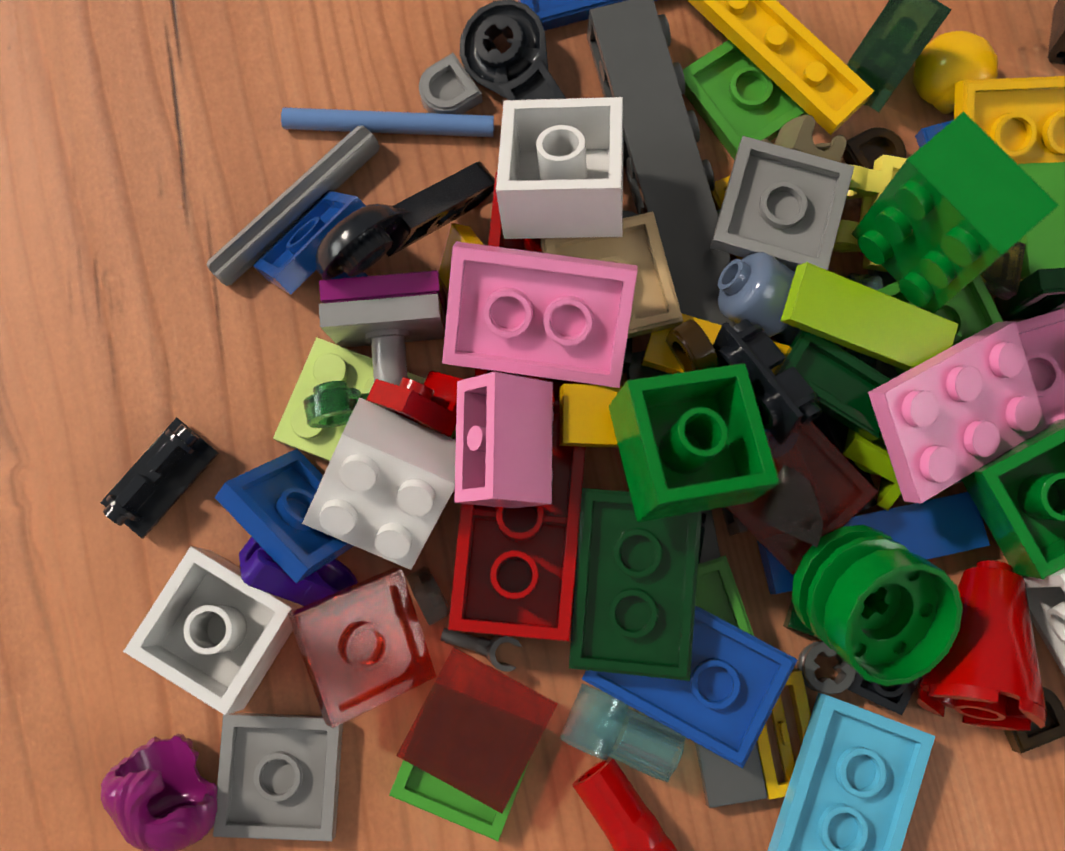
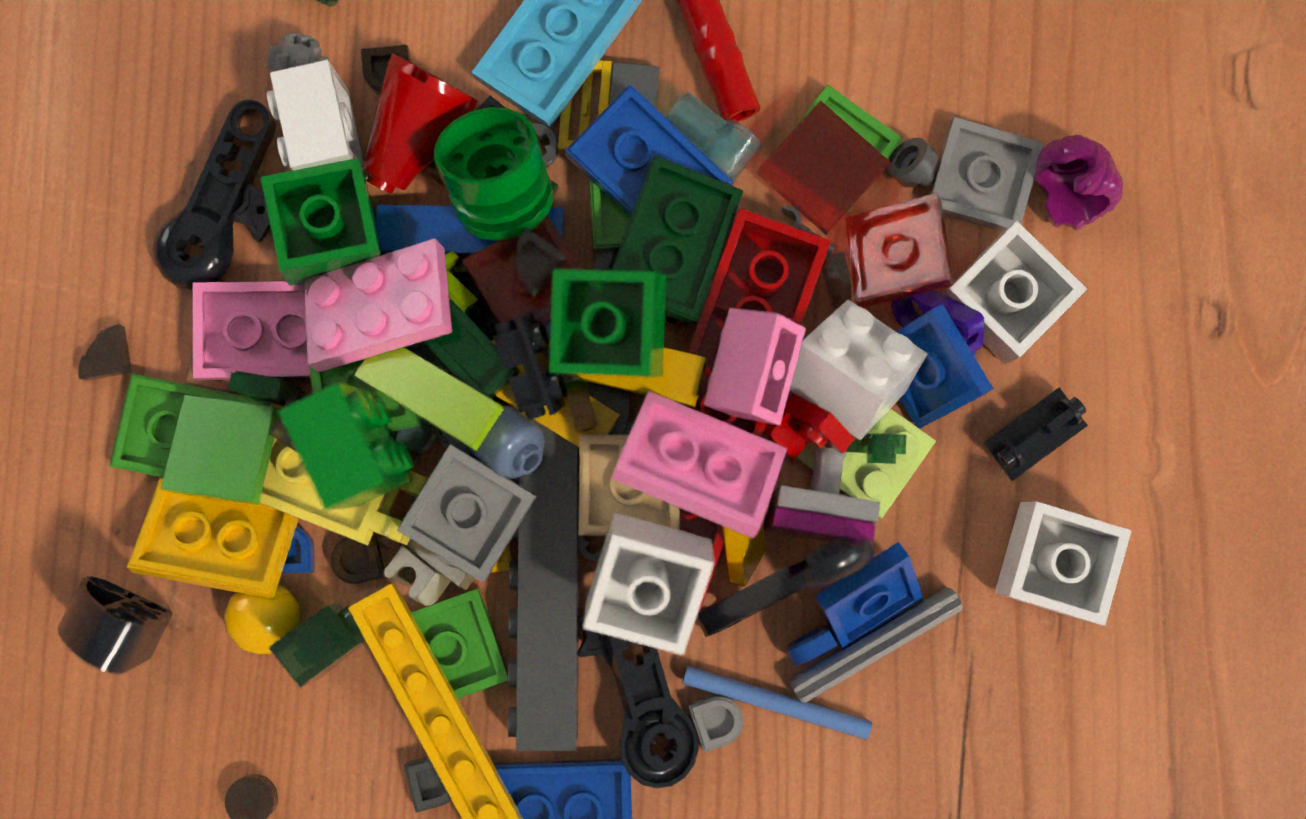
camera: 170 degrees left, 5 degrees up
(100, 331) = (1063, 562): none -> white brick
(365, 180) = (811, 645): none -> blue tile
(369, 765) = (913, 163): none -> dark grey tile

